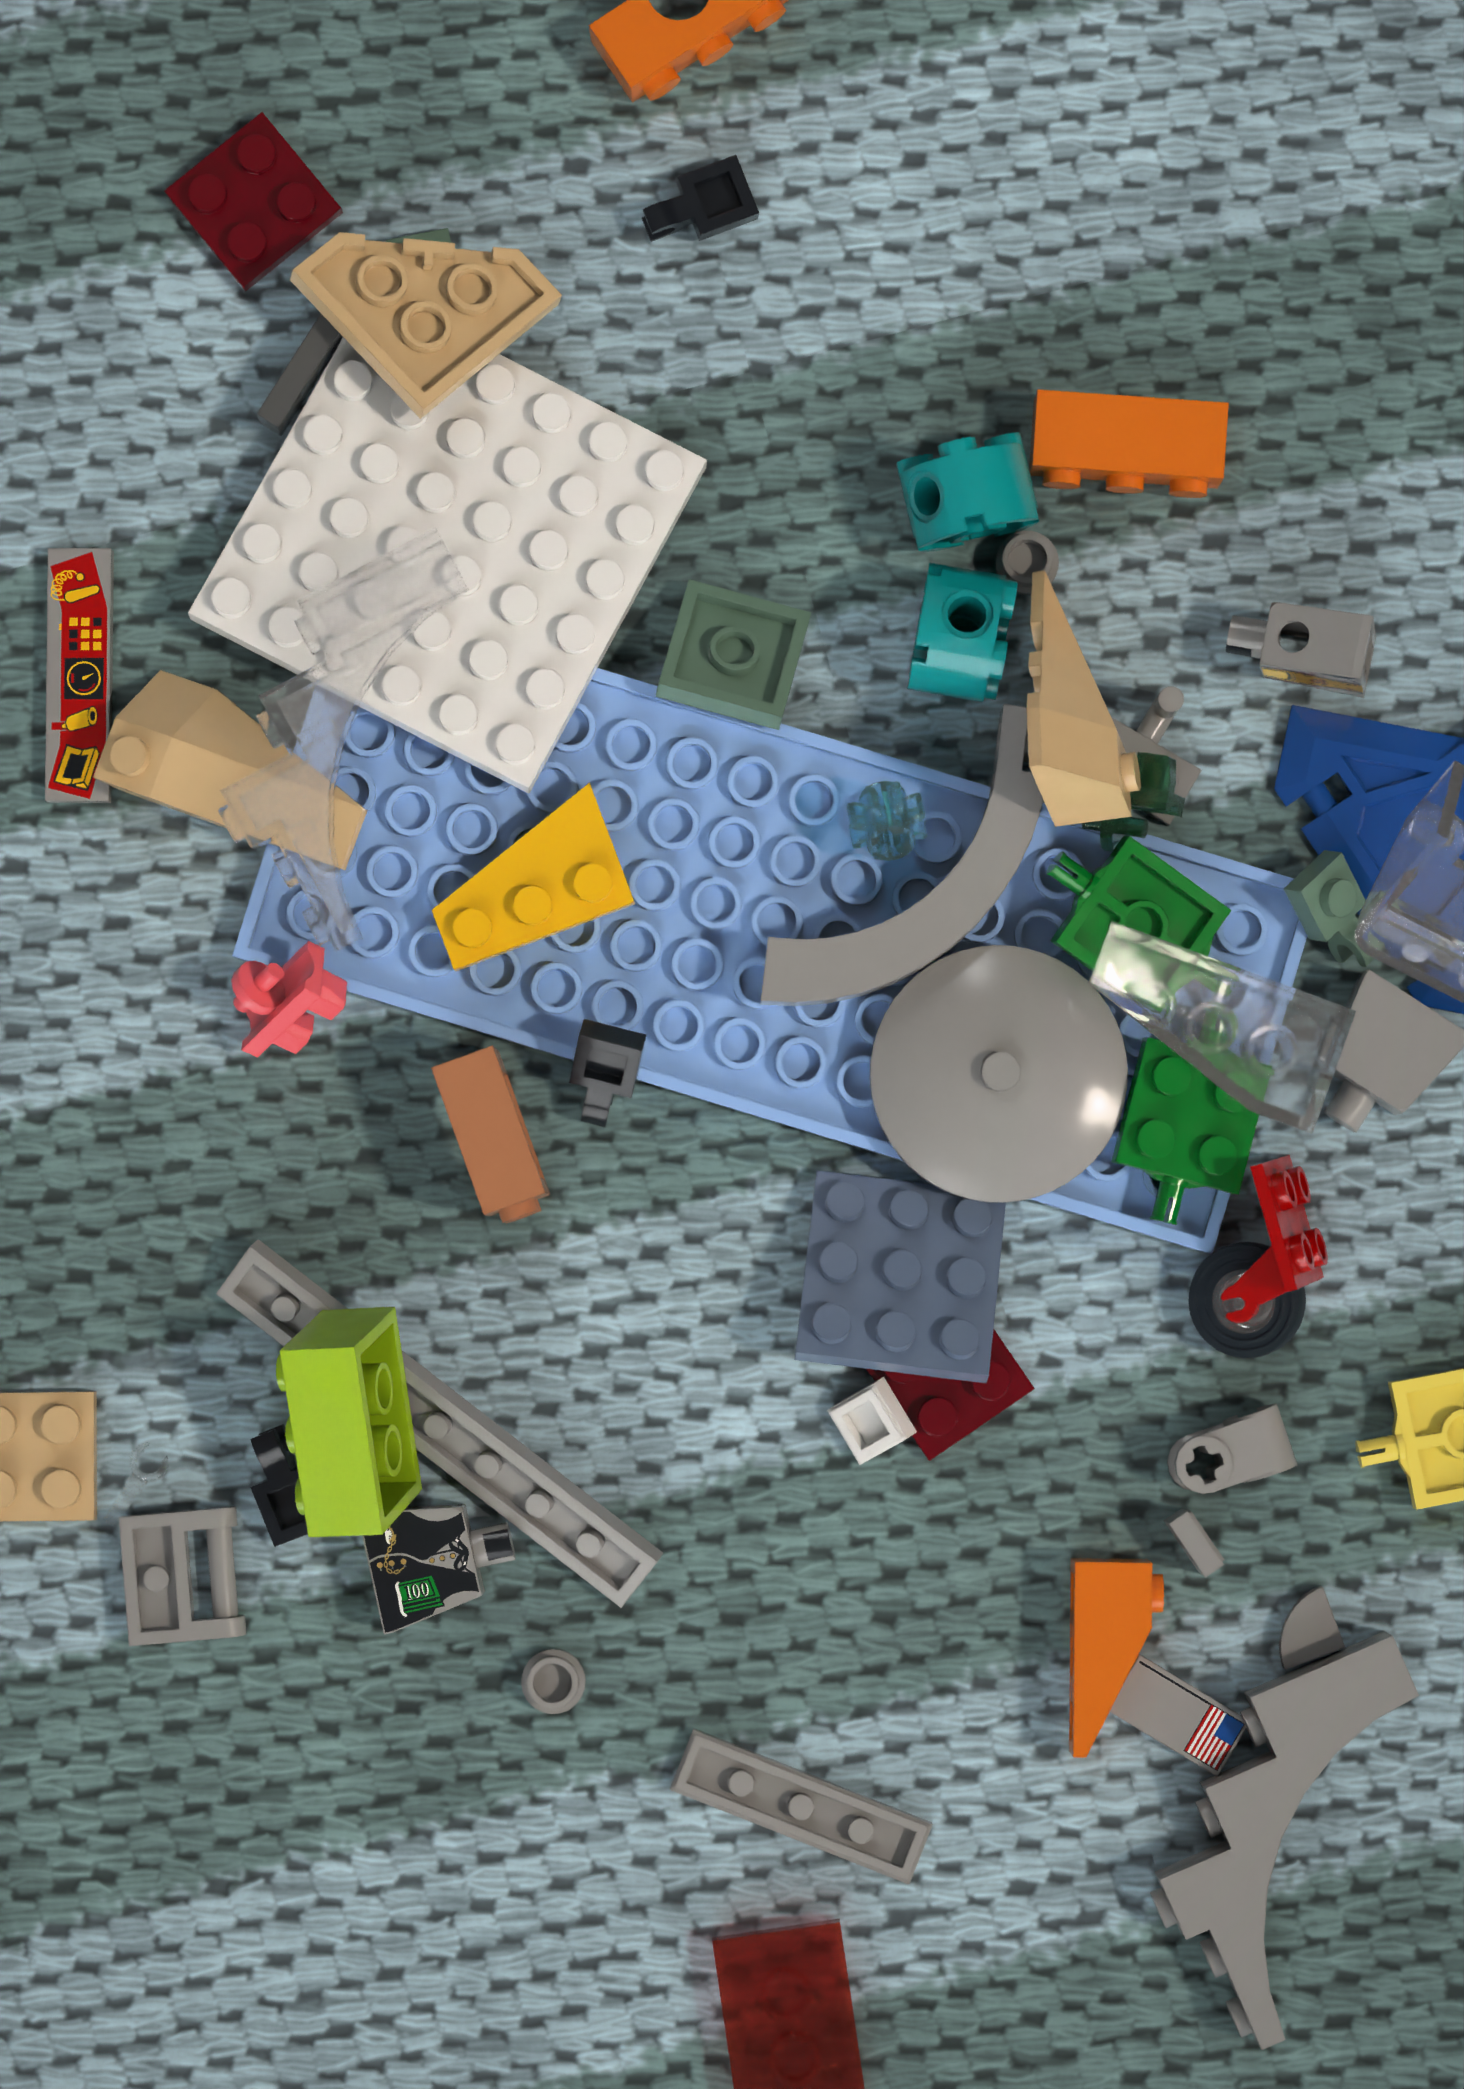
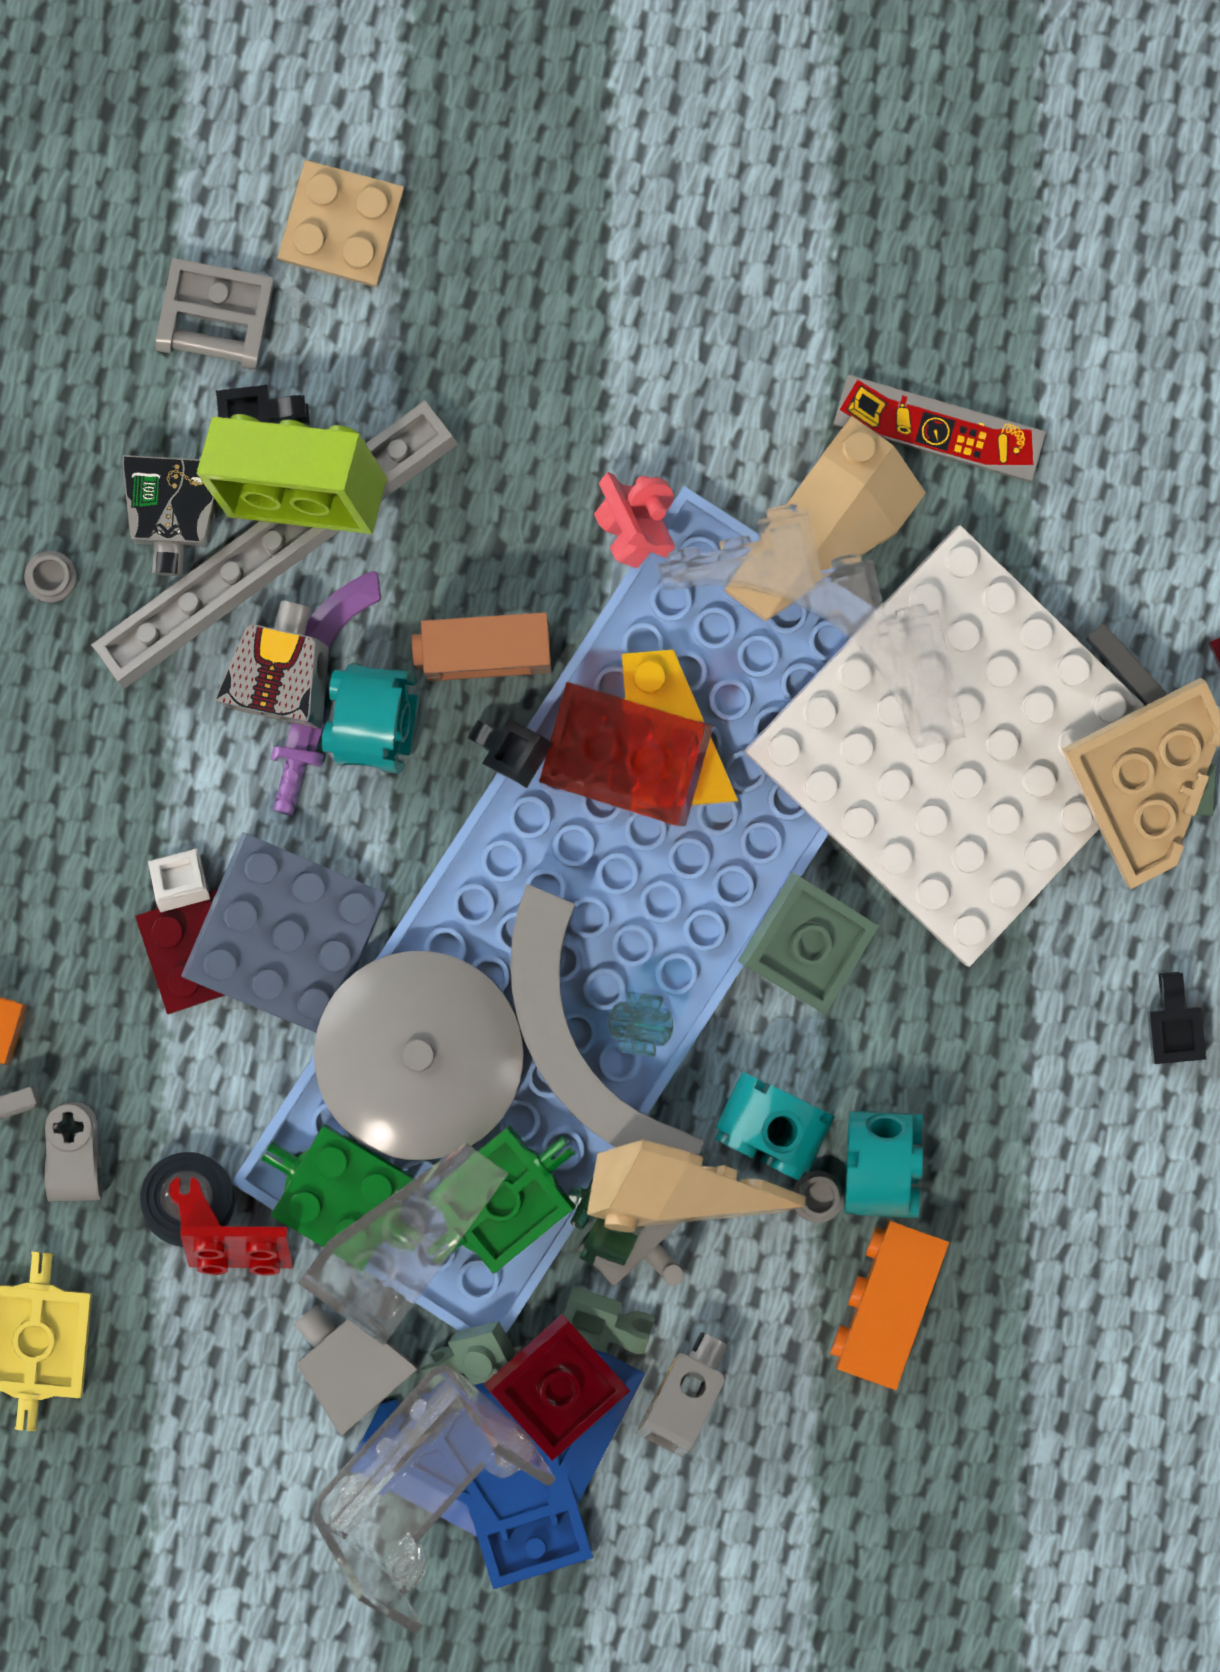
camera: 105 degrees right, 0 degrees up
(572, 927) = (626, 754): none -> clear red plate
(589, 1373) = (278, 671): none -> light grey torso
(590, 1341) = (324, 626): none -> medium lavender sword
(613, 1246) = (371, 717): none -> teal brick
(1247, 776) = (600, 1322): none -> sand green plate
(1341, 798) = (557, 1387): none -> dark red plate

